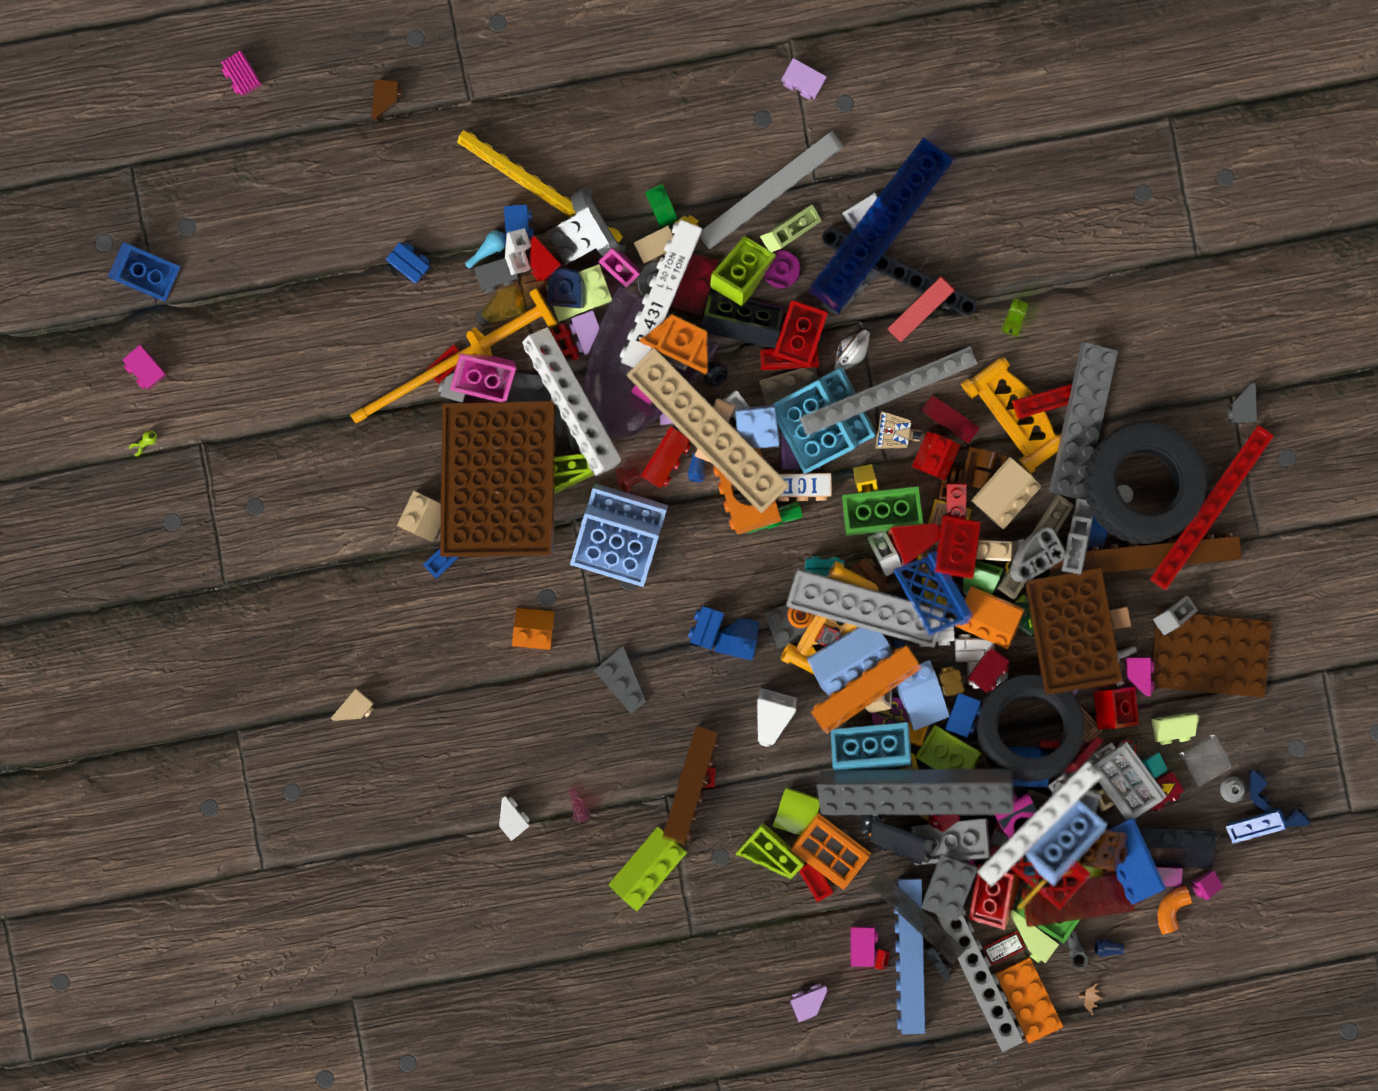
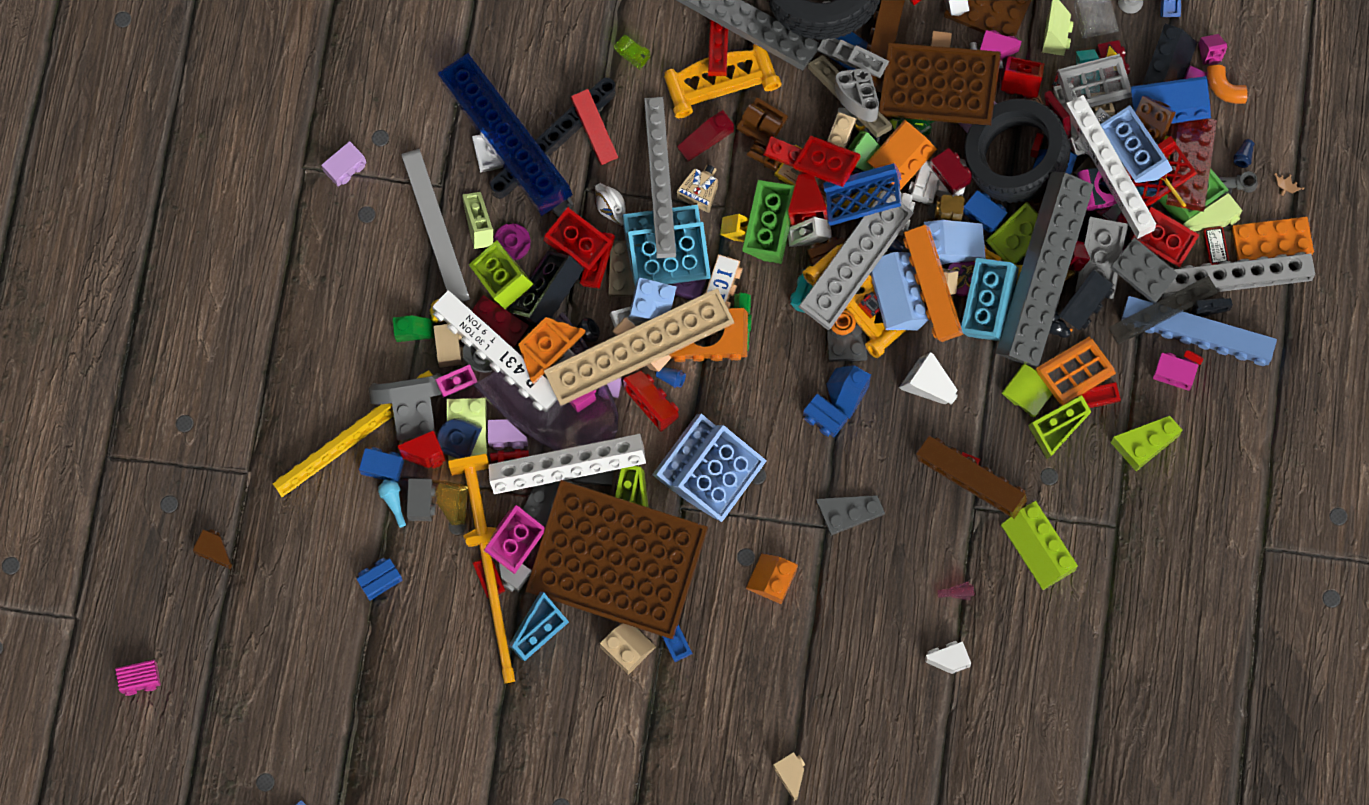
camera: 65 degrees left, 15 degrees down
(409, 427) = (537, 627): none -> dark azure wedge
(515, 255) = (410, 473): white slope -> none
(627, 478) = (658, 443): clear red piece -> none
(782, 940) = (1147, 441): none -> lime wedge
(808, 1003) = (1215, 437): lavender slope -> none
(936, 455) = (733, 158): red slope -> none
(1006, 493) = (791, 106): tan slope -> none

